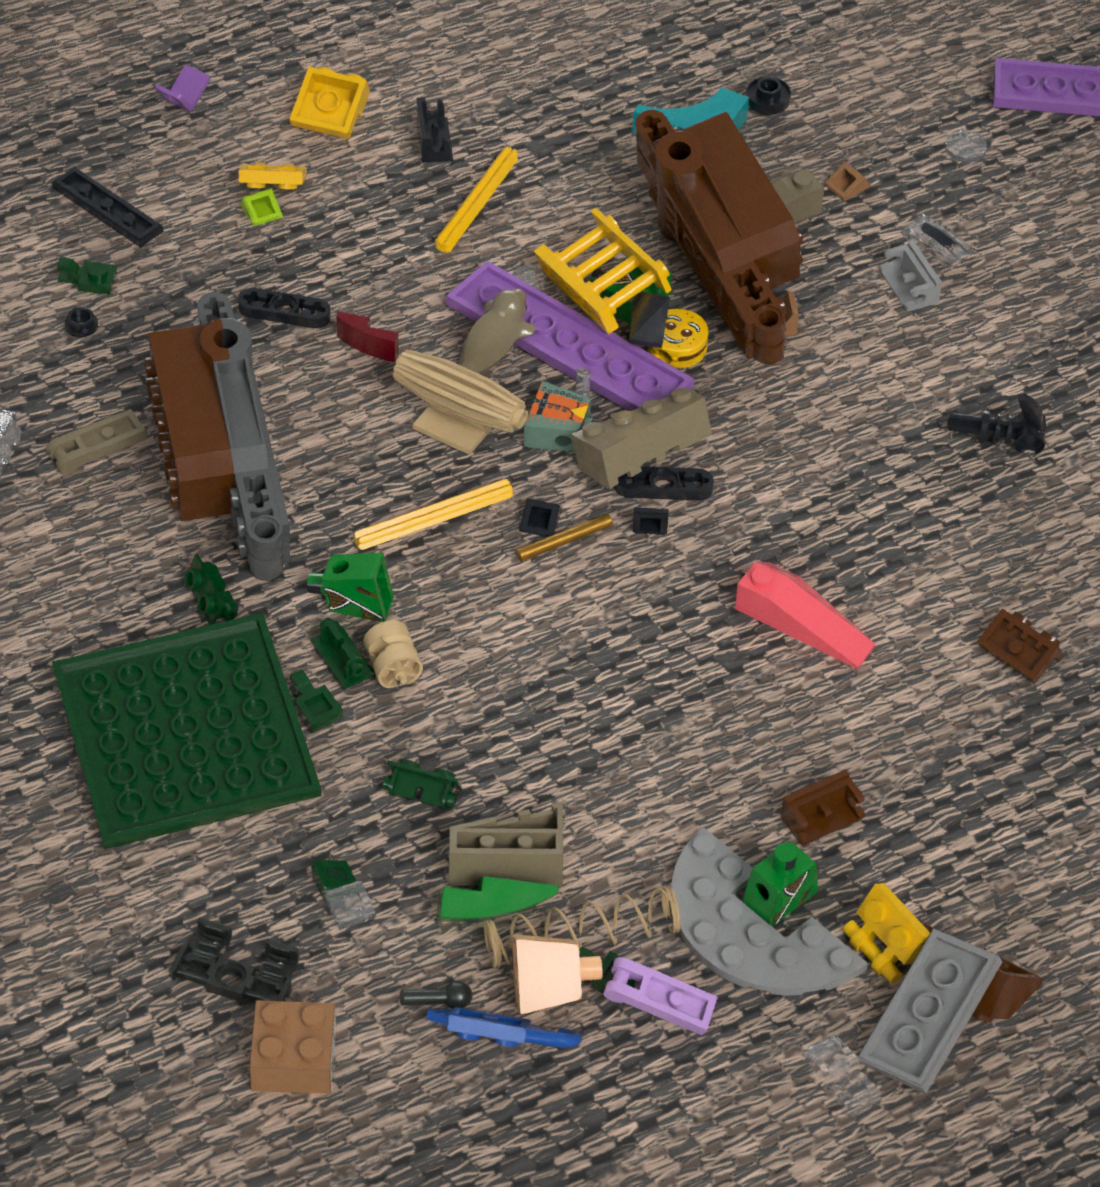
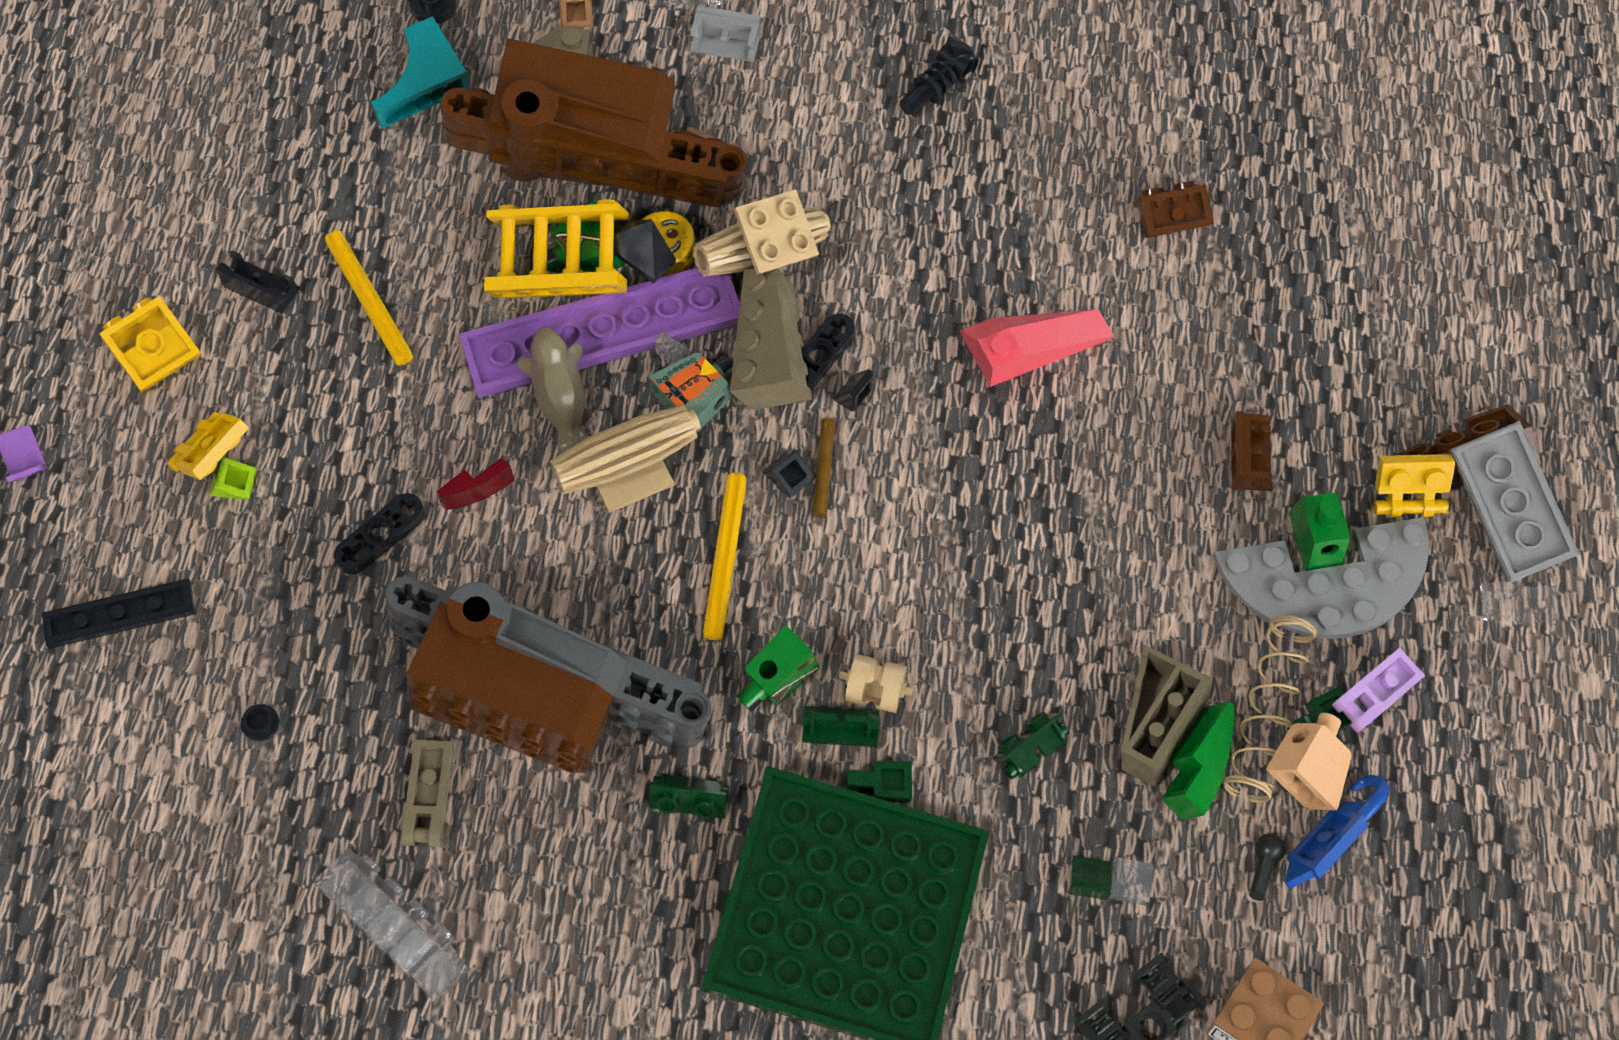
camera: 55 degrees left, 15 degrees up
(92, 277) = (203, 677): dark green plate -> none
(731, 382) = (765, 238): none -> tan plate

